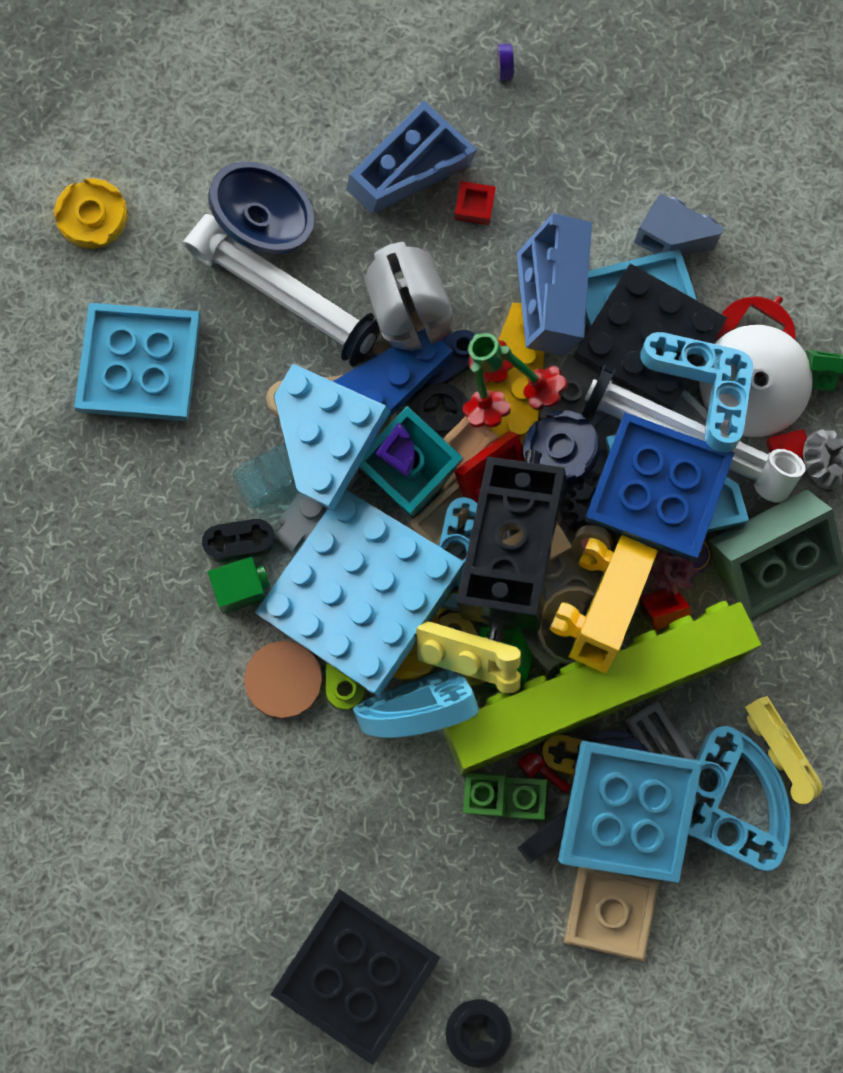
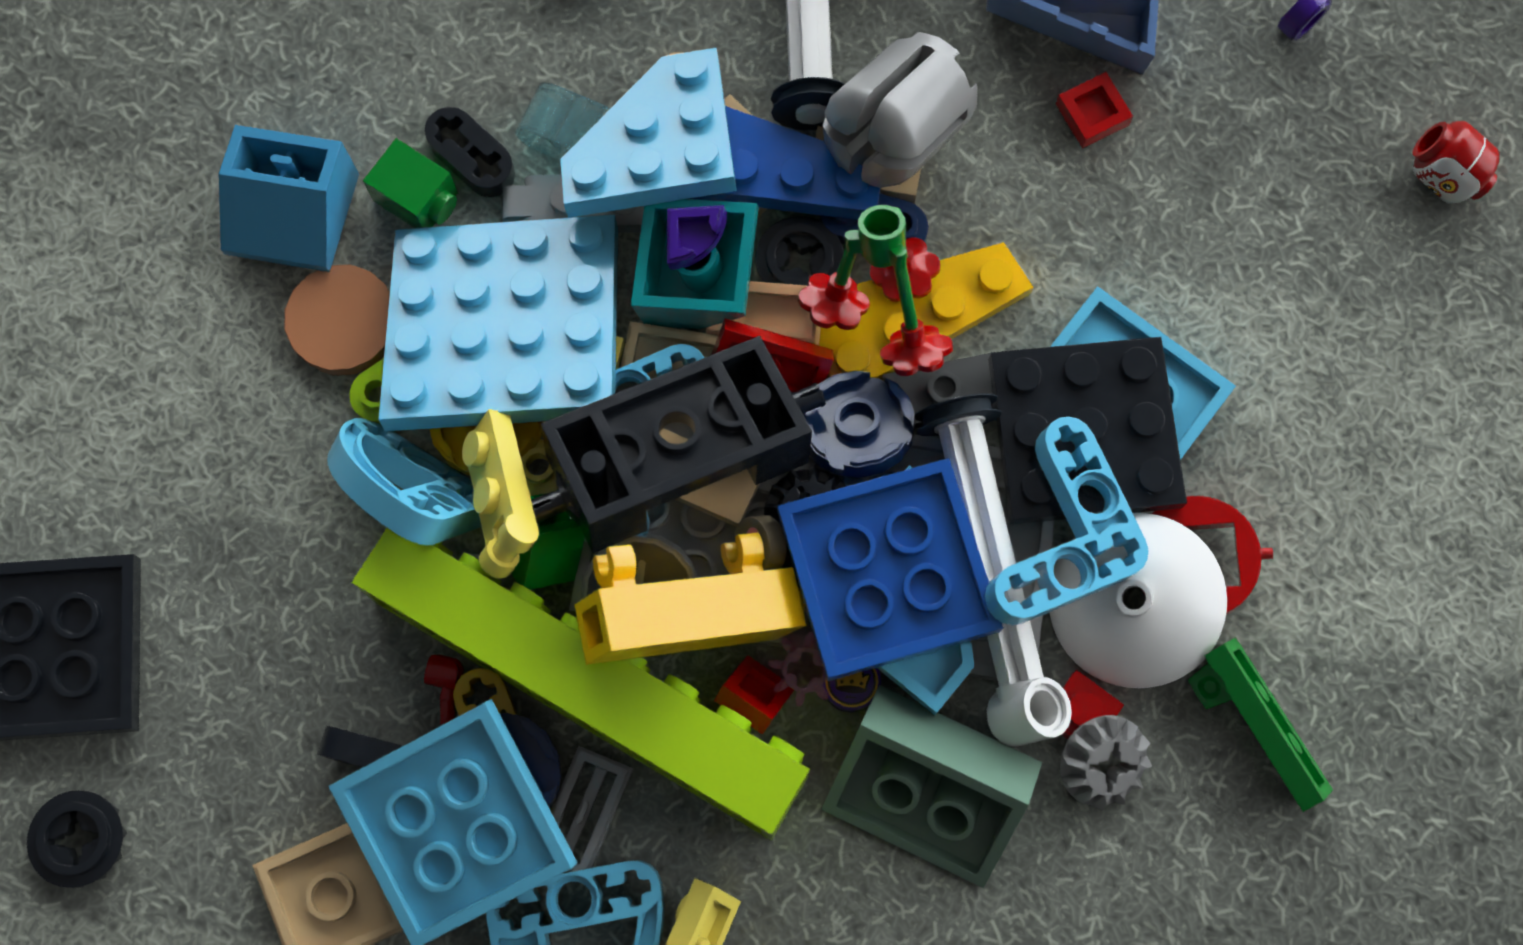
camera: 55 degrees right, 0 degrees up
(192, 659) = (284, 197): none -> dark azure slope
(506, 797) = (383, 672): bright green slope -> none
(555, 284) = (1056, 267): medium blue wedge -> none
(642, 54) = (1456, 161): none -> red head
(675, 227) = (1257, 356): sand blue slope -> none

